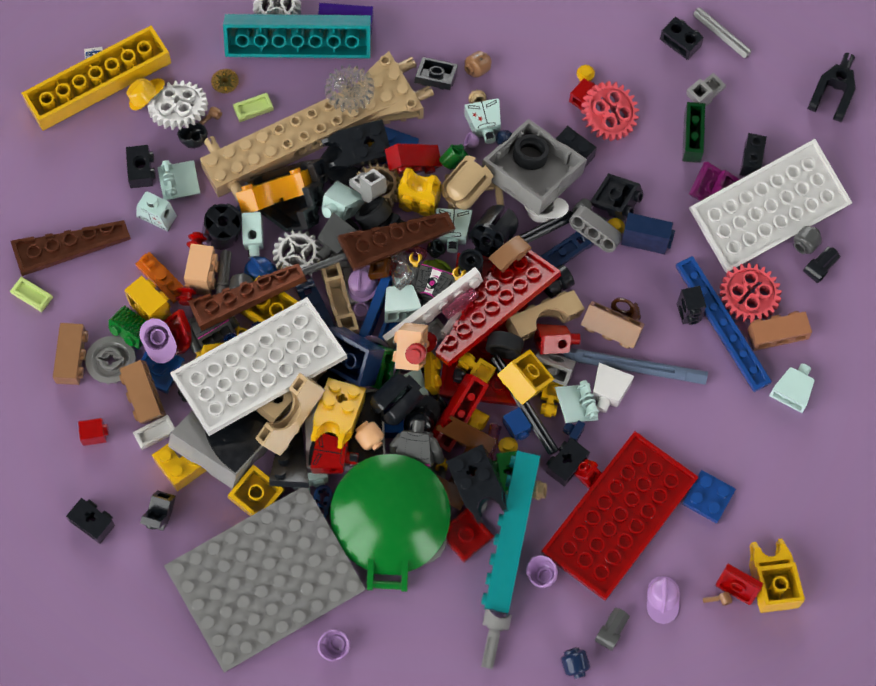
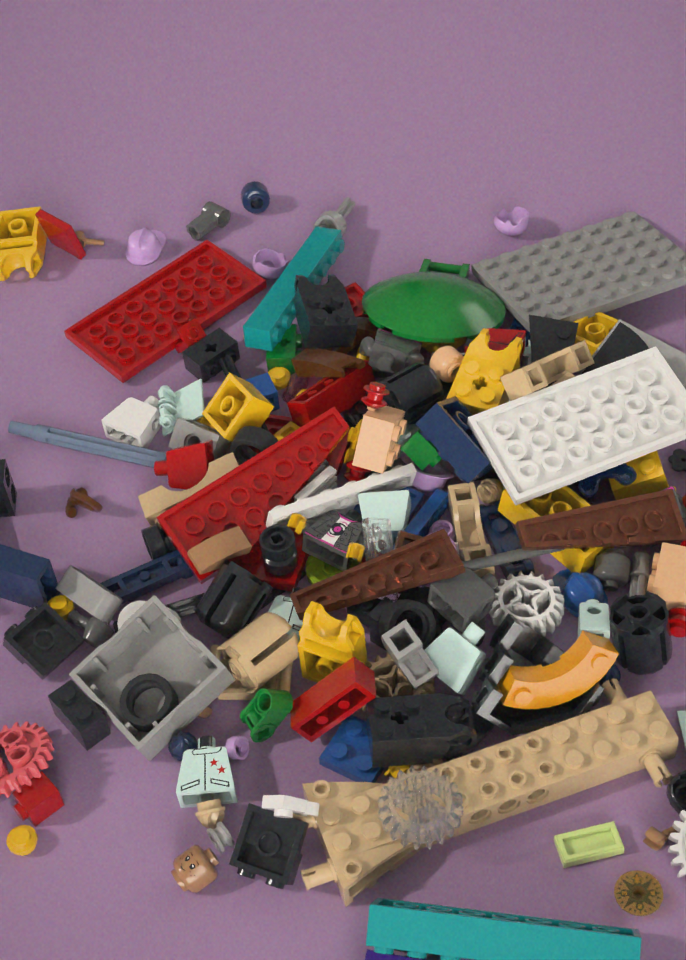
camera: 165 degrees left, 20 degrees down
(425, 80) = (285, 806): none -> white plate
(459, 303) = (304, 488): clear pink pin -> none
(467, 84) = (220, 837): none -> light grey bush
(574, 431) = (191, 375): dark blue tile -> none
(612, 325) = (106, 481): medium nougat brick -> none
(709, 496) = (55, 319): blue plate -> none

